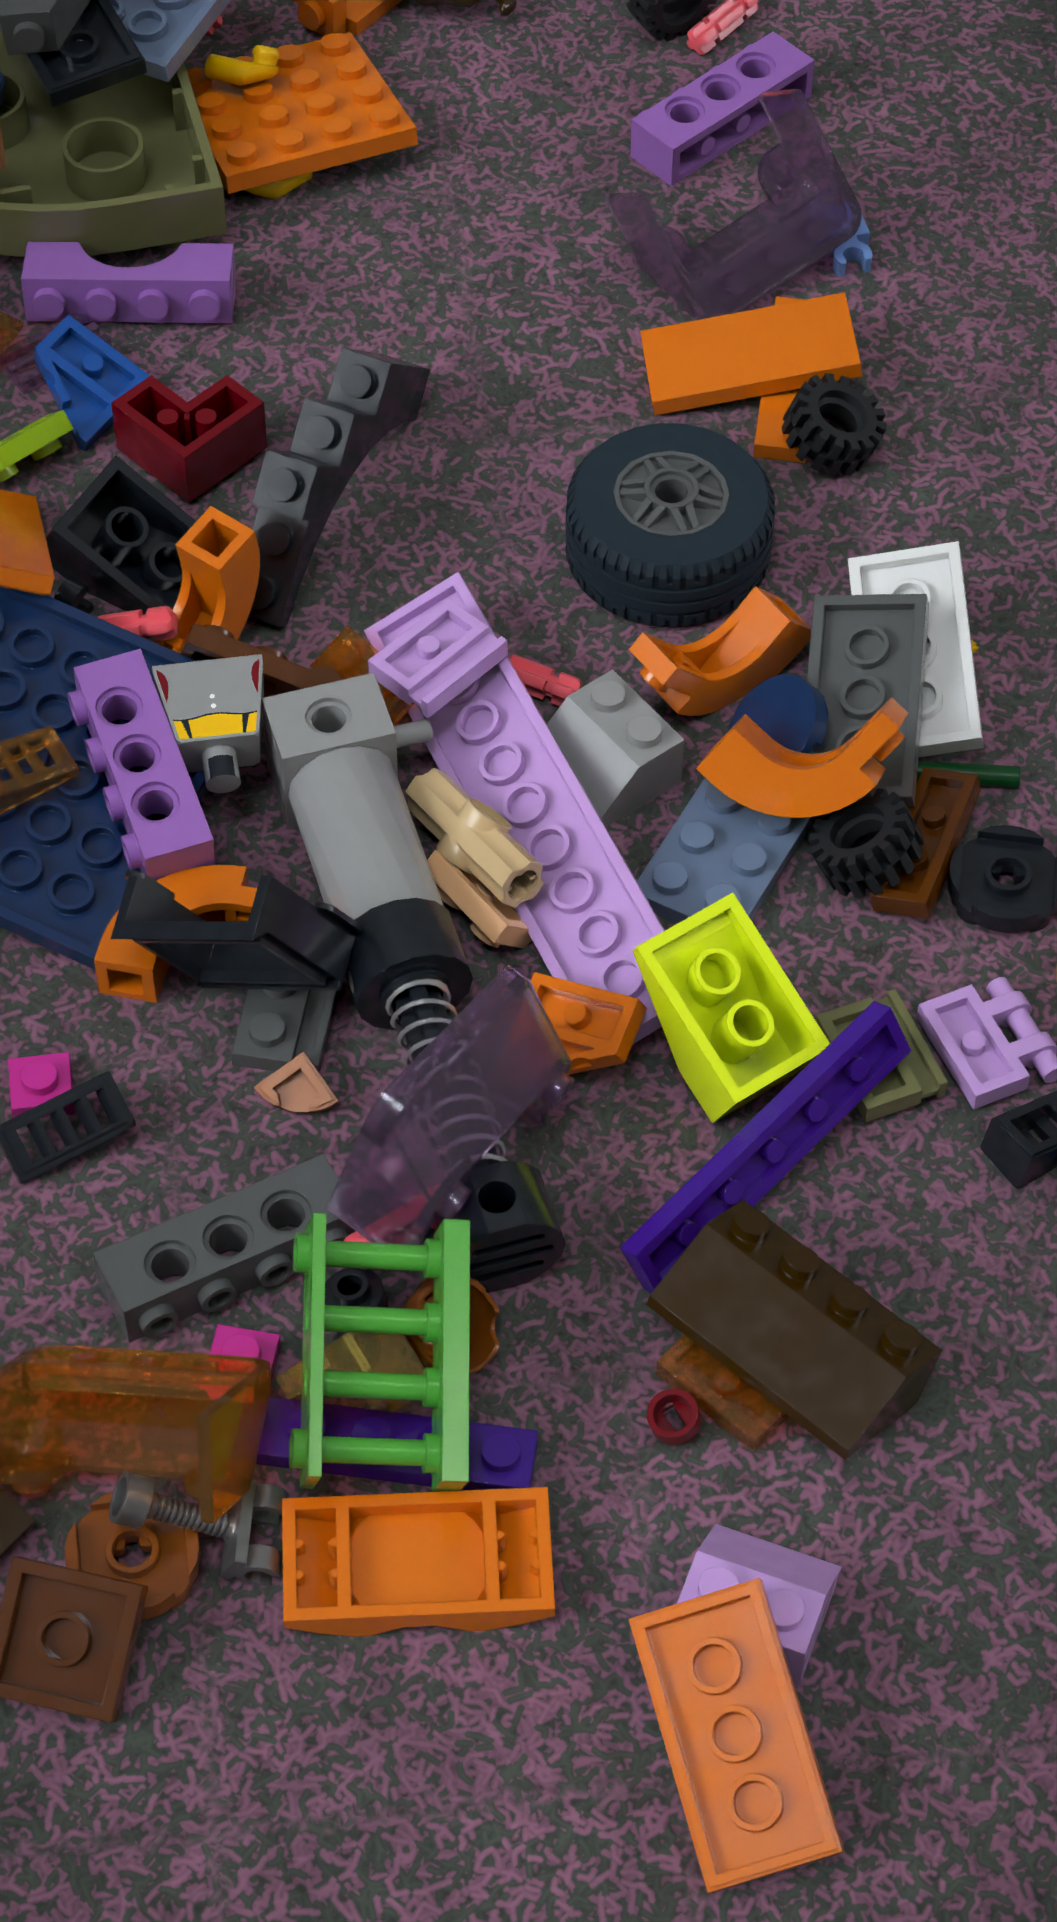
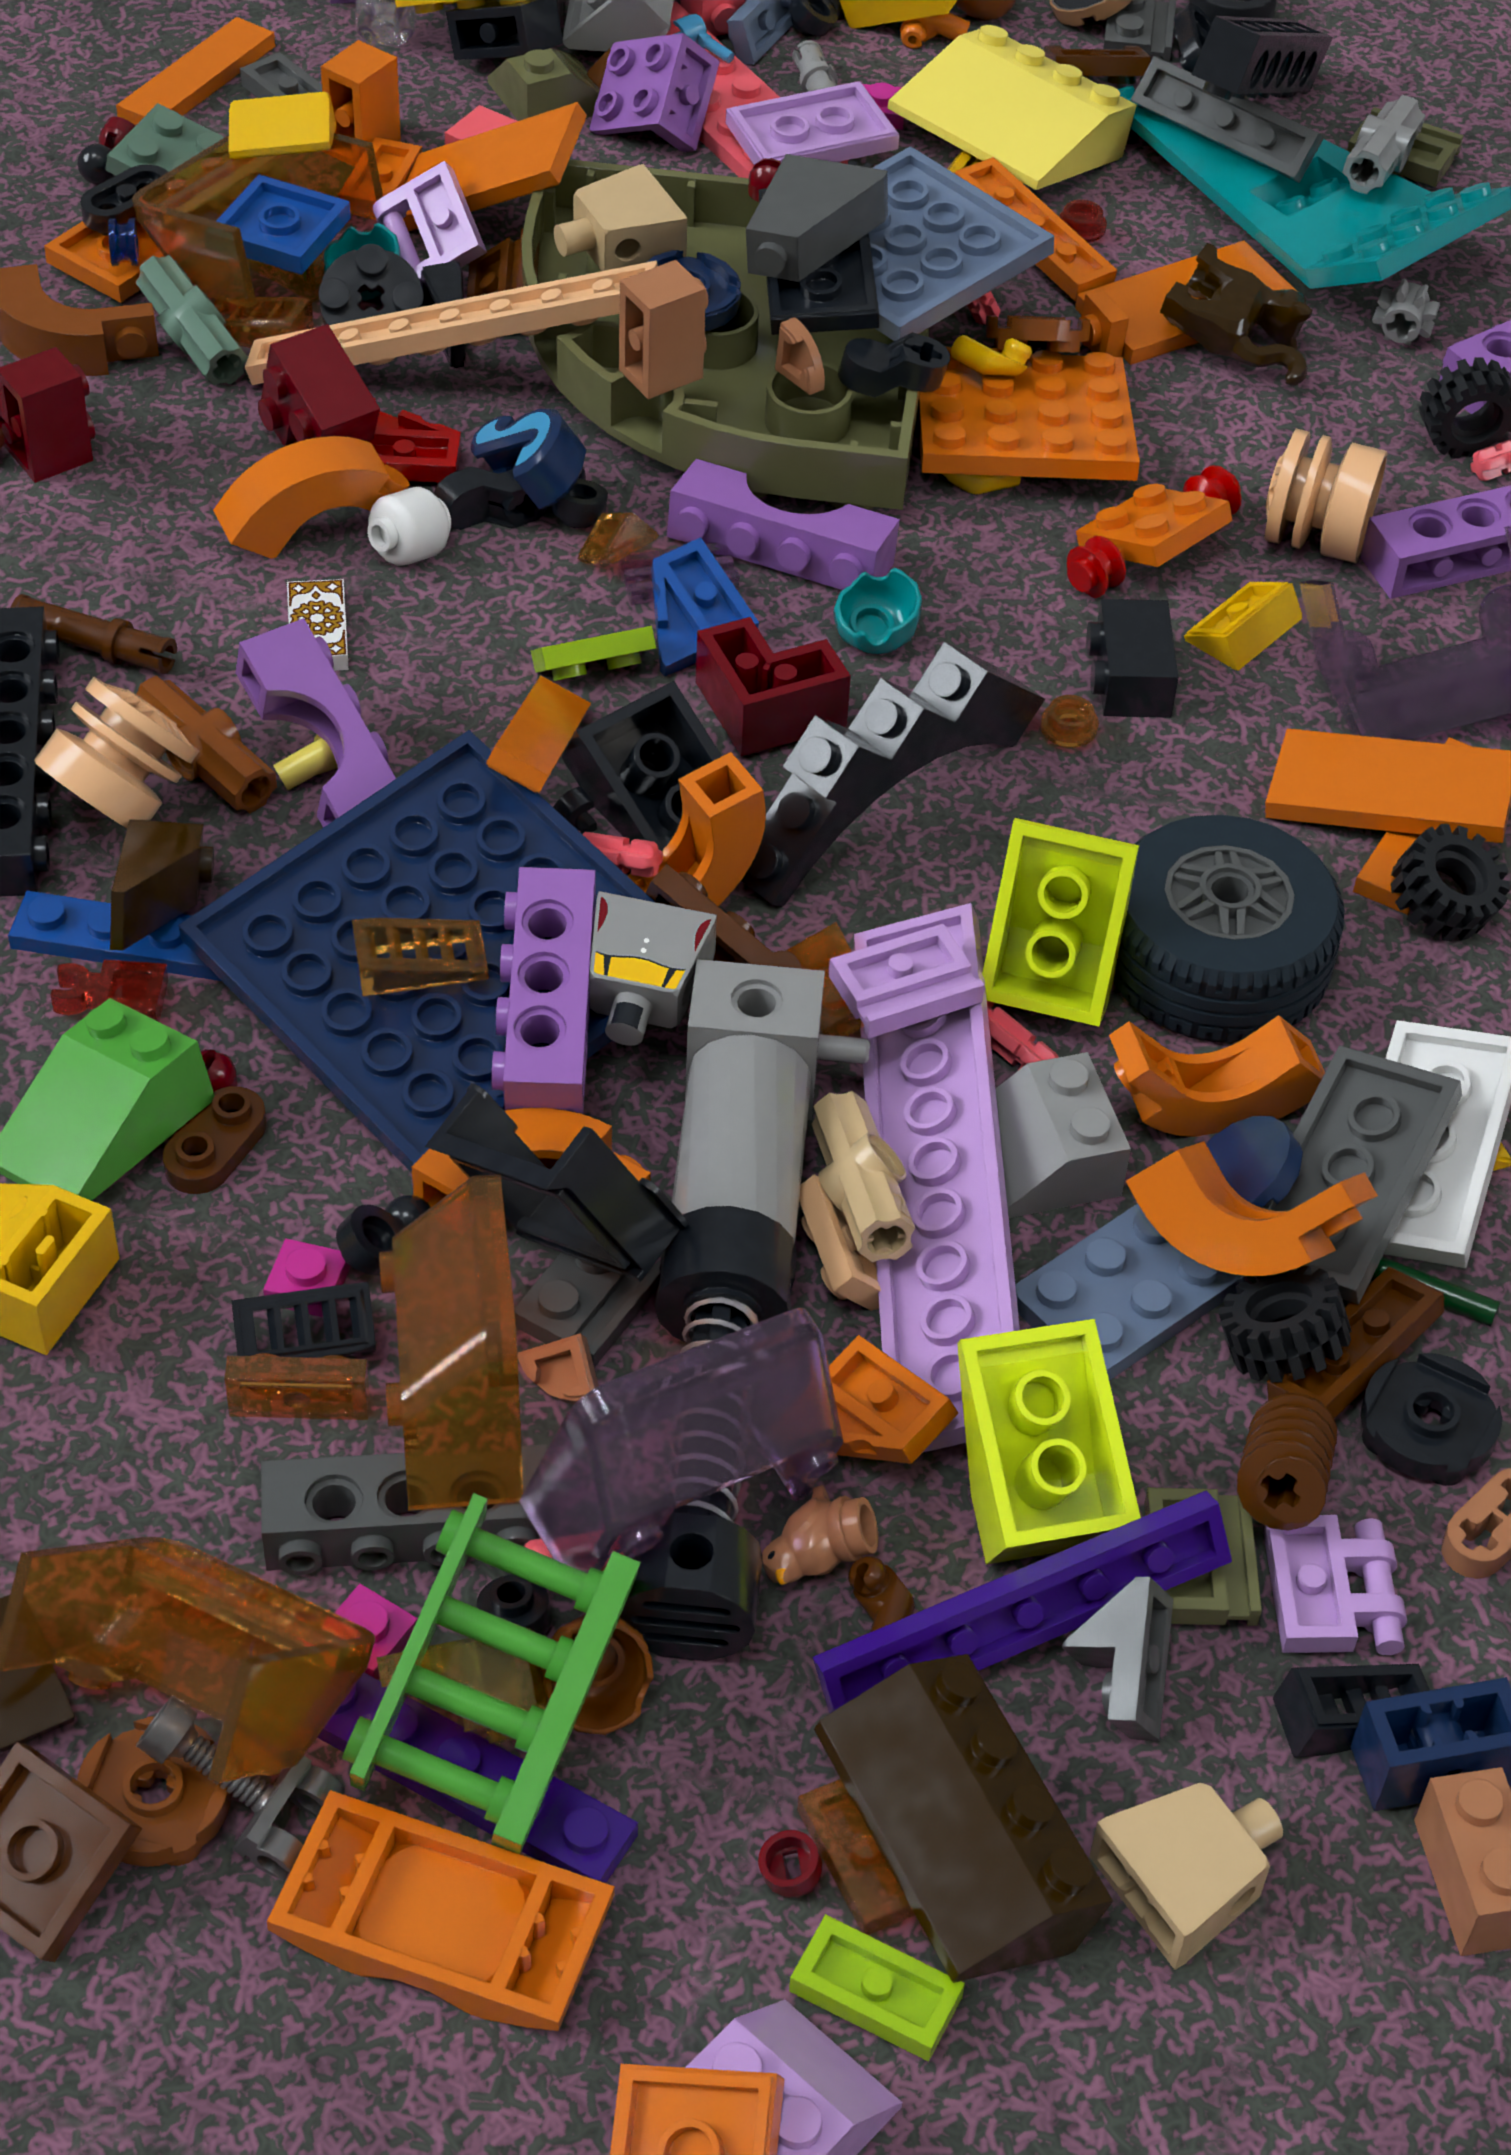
camera: 20 degrees right, 5 degrees down
(85, 1180) = (297, 1387): none -> clear orange plate
(87, 121) = (799, 357): none -> nougat tile
(89, 1029) = (372, 1228): none -> black plate
(182, 97) = (880, 367): none -> black piece
(234, 1087) = (456, 1351): none -> clear orange windscreen
(251, 333) = (878, 612): none -> teal hair
(269, 28) = (1053, 330): none -> dark orange plate
(448, 185) = (1151, 528): none -> orange plate
(456, 382) = (1069, 721): none -> clear orange plate
(486, 307) = (1134, 658): none -> black brick
(544, 564) = (1059, 921): none -> neon yellow slope
(562, 245) = (1247, 622): none -> yellow slope
(577, 1147) = (821, 1537): none -> nougat animal
(587, 111) = (1324, 495): none -> light nougat wheel
(643, 1178) = (880, 1592): none -> reddish brown arm
(784, 1486) = (876, 1987): none -> lime plate
(862, 1141) = (1132, 1639): none -> slope
(919, 955) = (1287, 1461): none -> reddish brown piece
(977, 1301) = (1186, 1864): none -> tan torso

